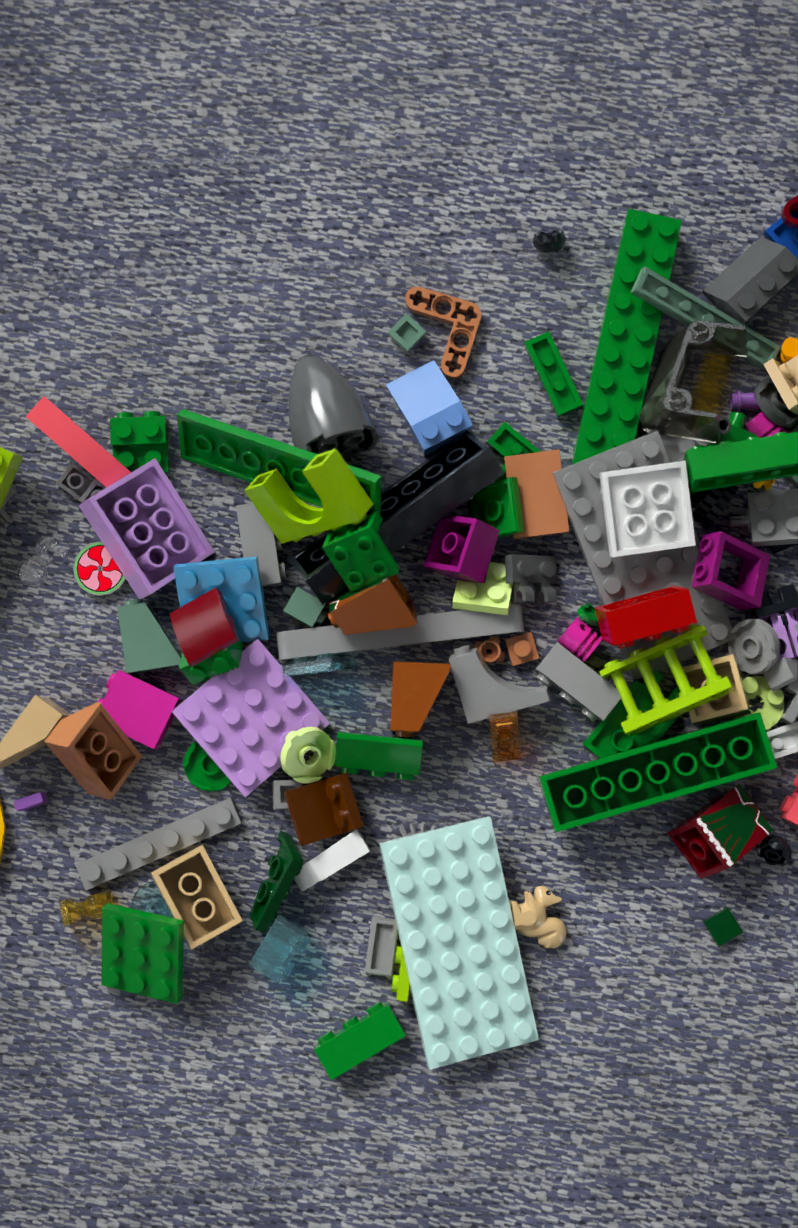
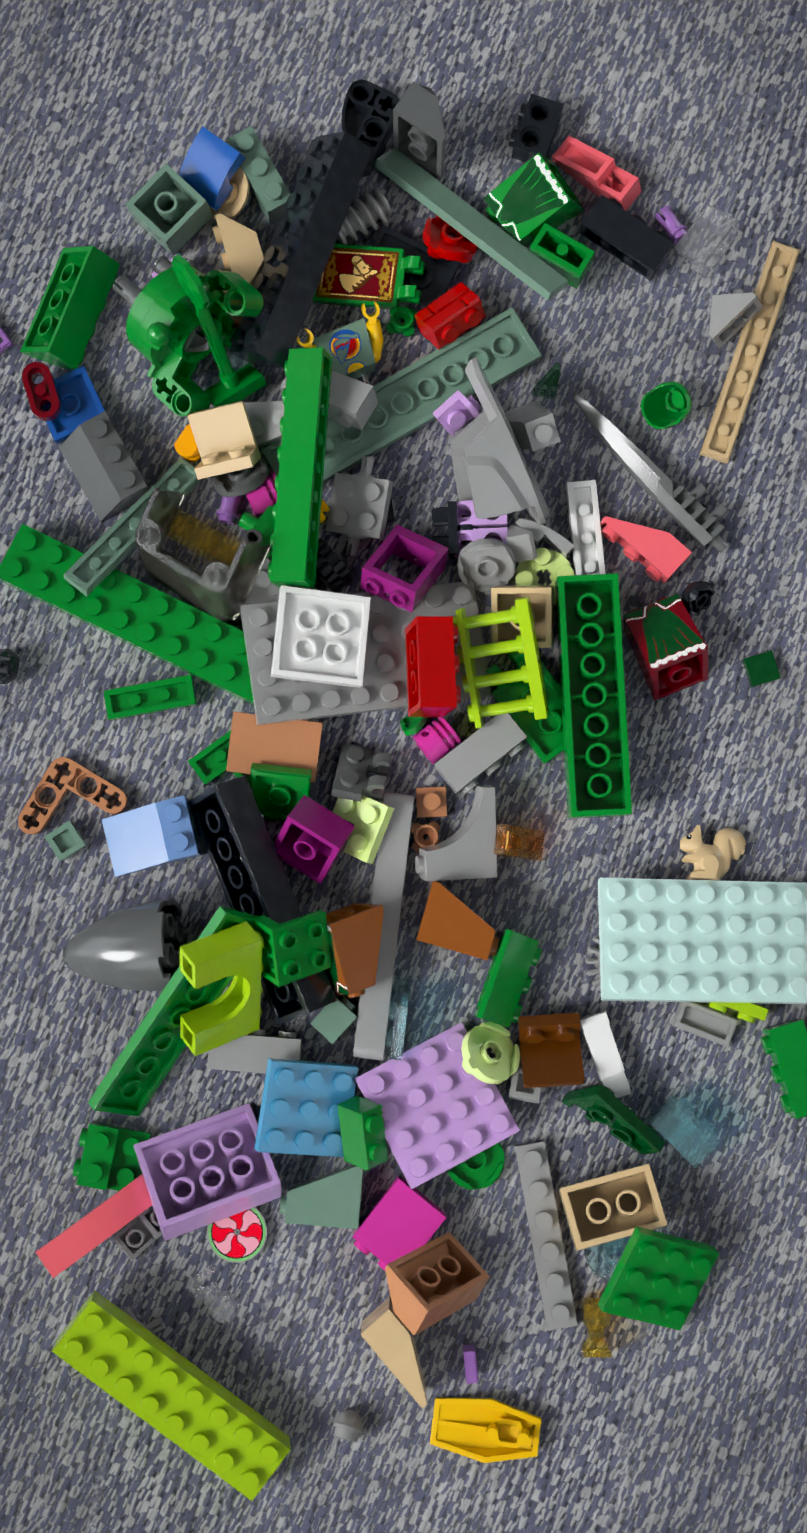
camera: 80 degrees left, 0 degrees up
(203, 627) = (330, 1133): dark red slope -> none

